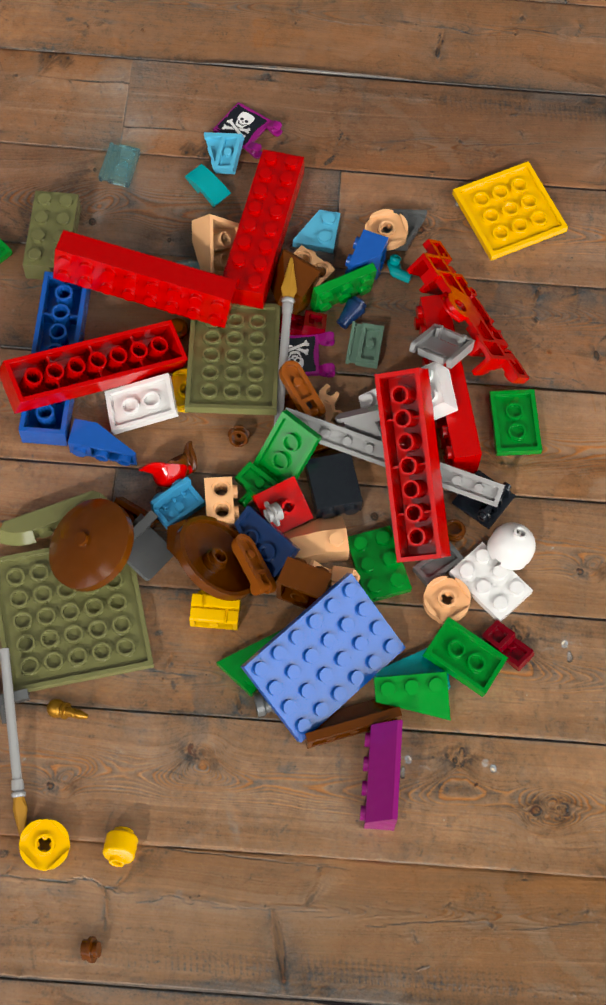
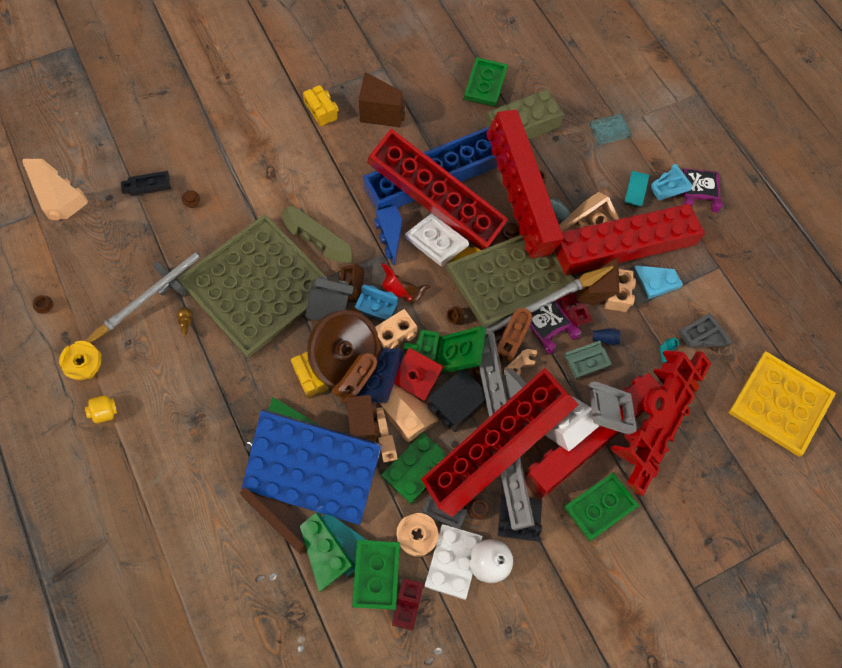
camera: 60 degrees right, 0 degrees up
(90, 949) = (18, 431): reddish brown plate -> none
(91, 545) = (303, 264): reddish brown dish -> none
(273, 513) = (403, 367): light grey plate -> none
(343, 288) = (619, 317): green plate -> none
(368, 249) = (655, 320): blue slope -> none
(382, 776) = (242, 564): magenta slope -> none
(391, 220) = (691, 331): light nougat plate -> none

